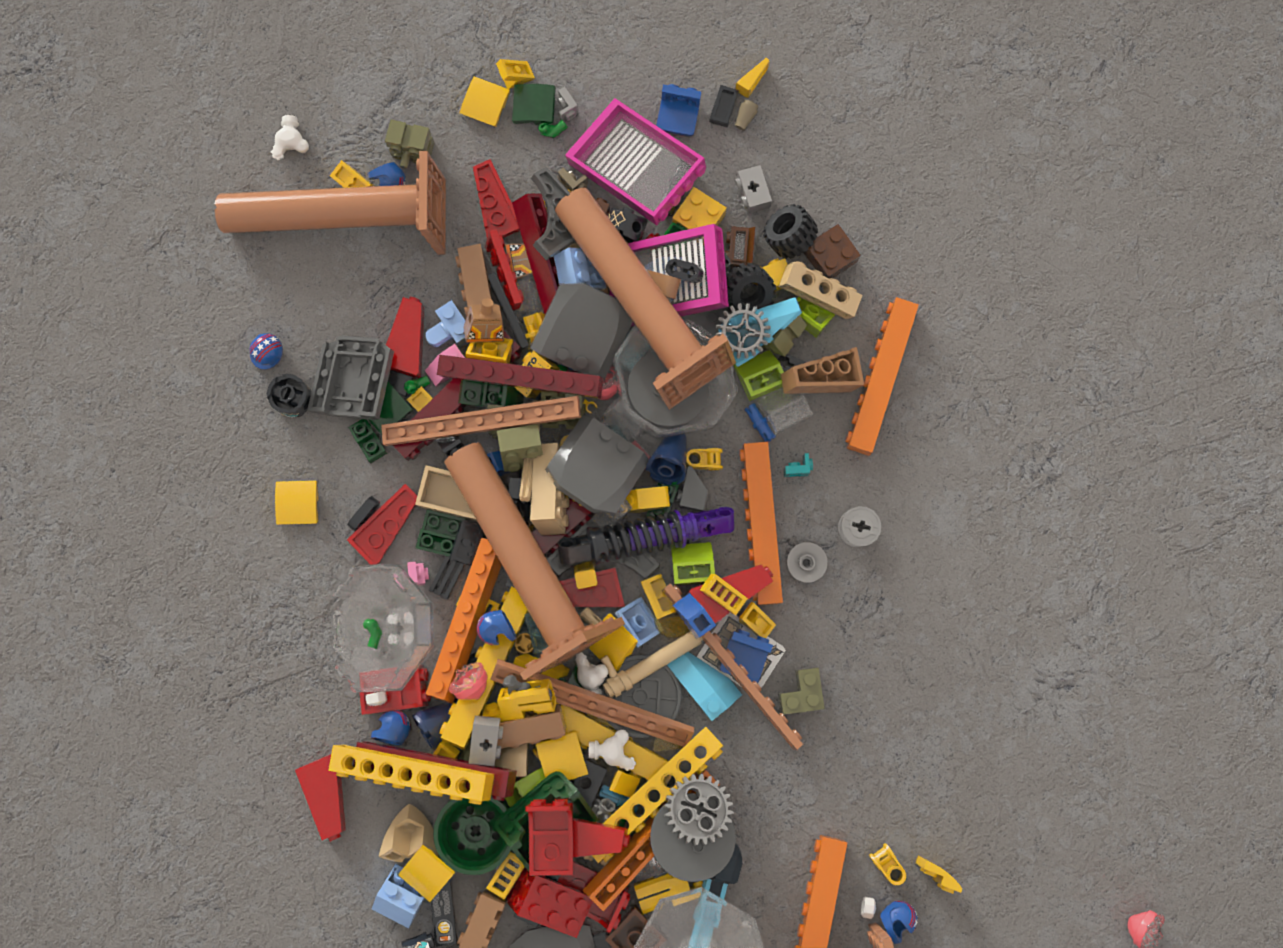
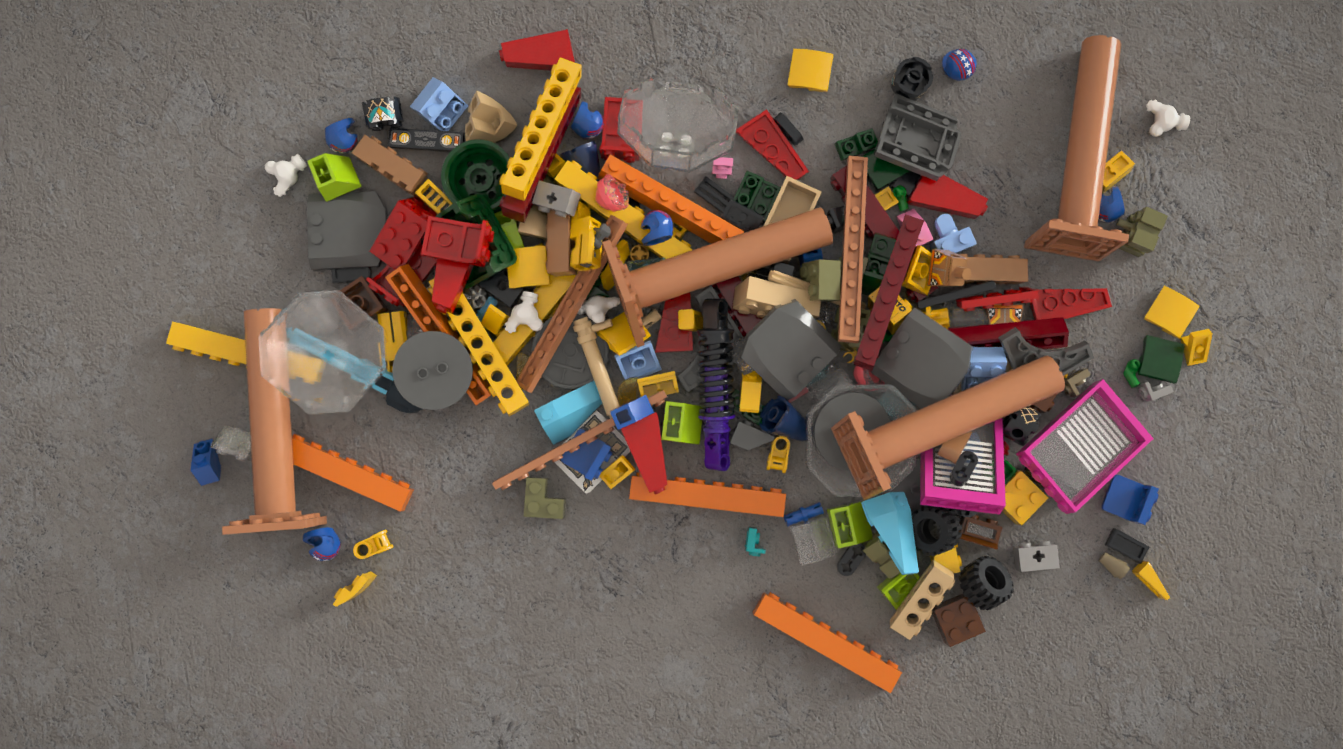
camera: 100 degrees right, 5 degrees up
(375, 632) = (678, 120): green arm -> none
(376, 698) = (614, 110): white tile -> none
(426, 873) = (452, 129): yellow slope -> none
(692, 828) = (439, 370): light grey gear -> none
(721, 583) = (658, 431): yellow slope -> none
(746, 313) = (899, 497): light grey gear -> none
(817, 560) = (655, 538): light grey dish -> none
(826, 375) = (837, 588): medium nougat wedge -> none
(855, 516) = (675, 589): light grey piece -> none
(868, 907) = (340, 518): white tile -> none

